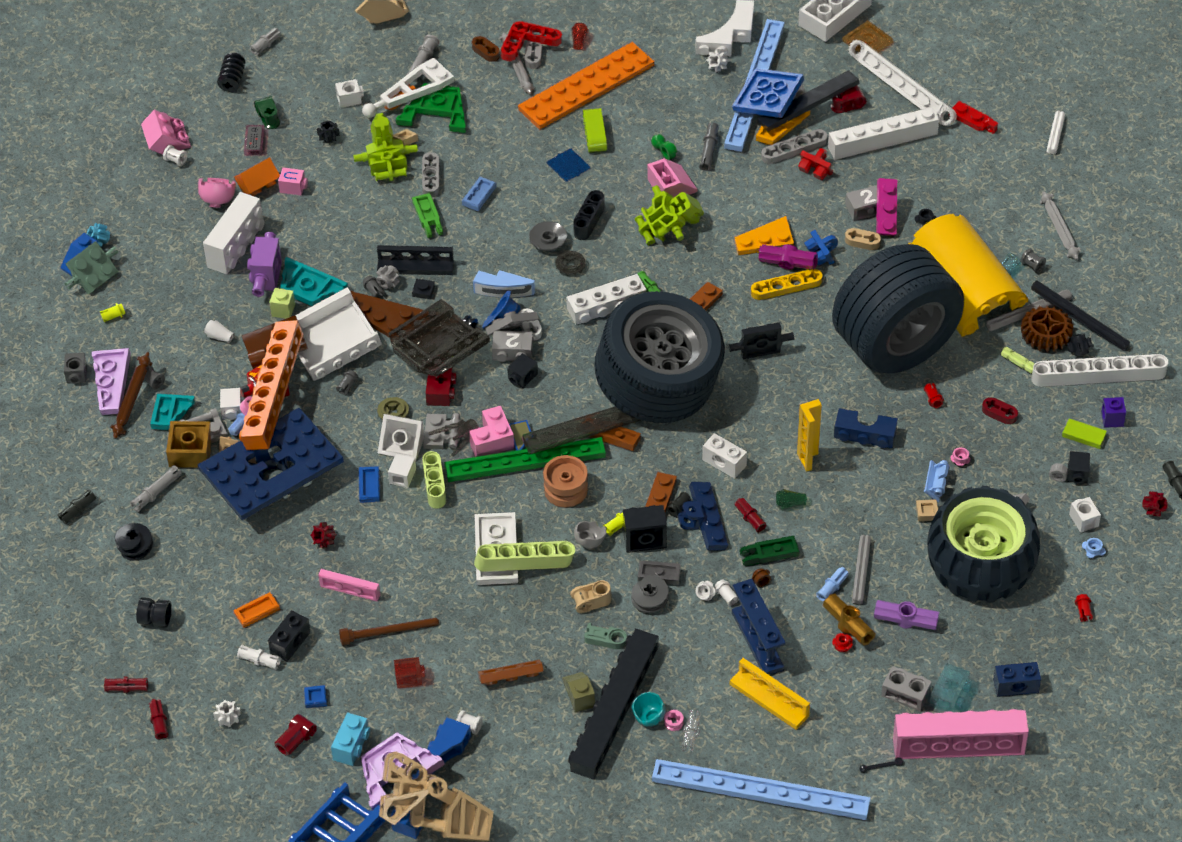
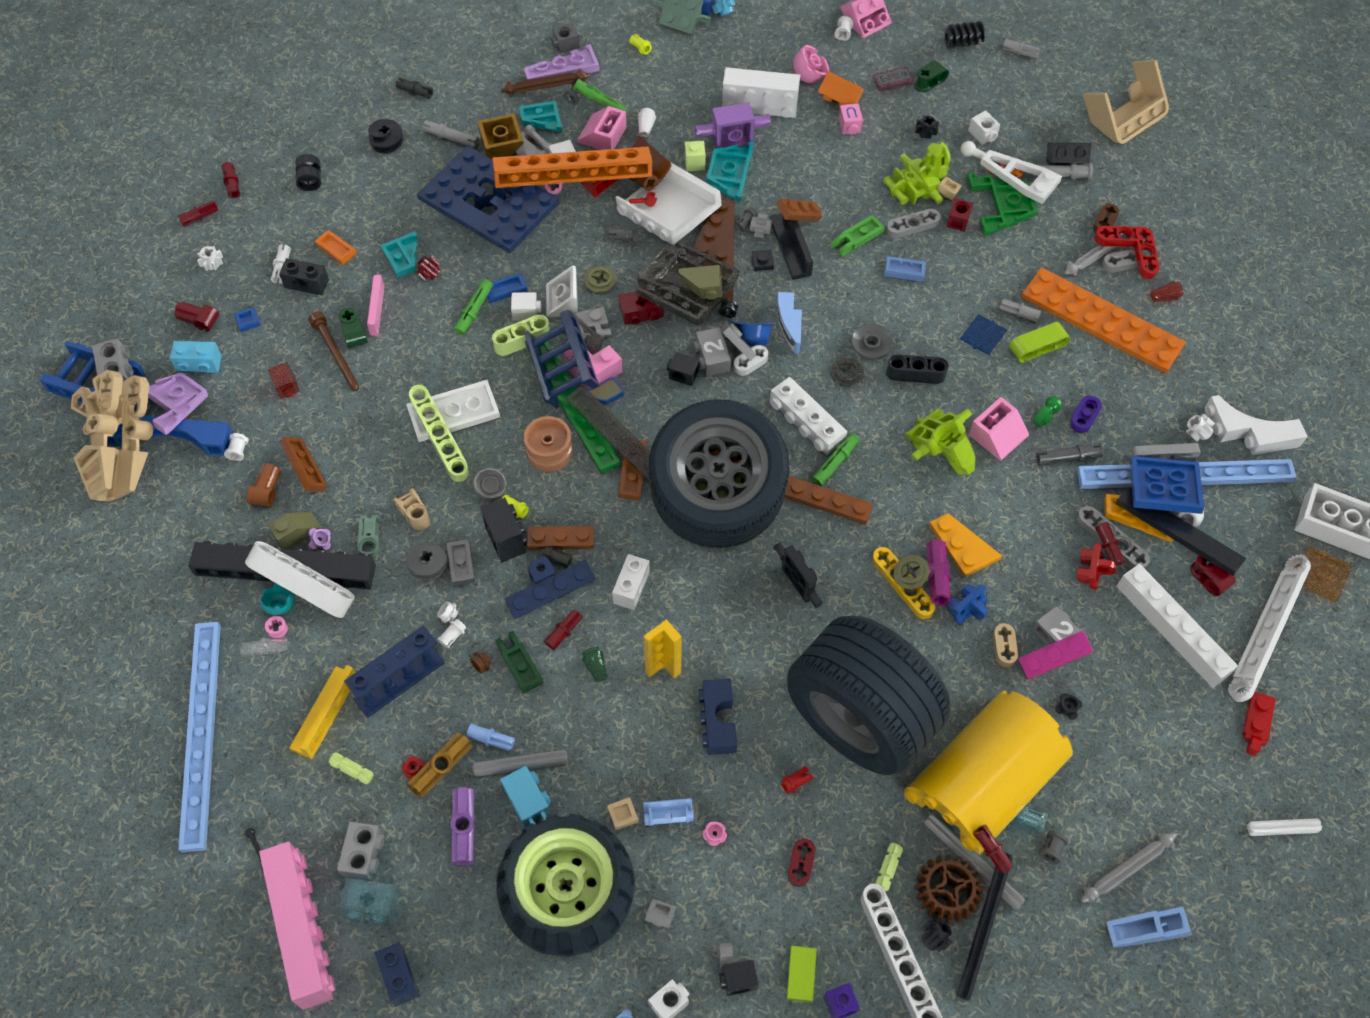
camera: 70 degrees right, 10 degrees up
(168, 360) = (597, 96): none -> bright green pin
(214, 363) = (604, 129): none -> bright pink slope
(294, 555) = (402, 253): none -> teal wing
(319, 351) = (649, 200): none -> red hand
(341, 803) = (118, 362): none -> light grey brick
(371, 608) = (352, 329): none -> dark green piece
(390, 240) = (799, 210): none -> dark orange plate
(391, 515) = (469, 313): none -> bright green pin
(407, 46) = (1068, 152): none -> black brick
(438, 139) = (959, 214): none -> dark red brick
(449, 322) = (703, 281): none -> olive slope
(496, 427) = (580, 358): none -> dark blue fence
(527, 708) = (264, 488): none -> dark orange piece
(556, 132) = (1020, 310): none -> light grey axle
(595, 671) = (324, 534): none -> lavender plate
(642, 681) = (299, 579): none -> white beam
(675, 124) = (1085, 415): none -> dark purple plate
(732, 89) = (1181, 452): none -> light grey piece
(777, 266) = (914, 562): none -> olive gear
(798, 146) = (1109, 543): none -> dark red axle
(828, 686) = (351, 768): none -> yellowish green axle
(897, 568) = (525, 795): none -> medium azure brick
(1032, 283) = (993, 848): none -> dark red axle
(1107, 227) = (1149, 927): none -> light blue slope

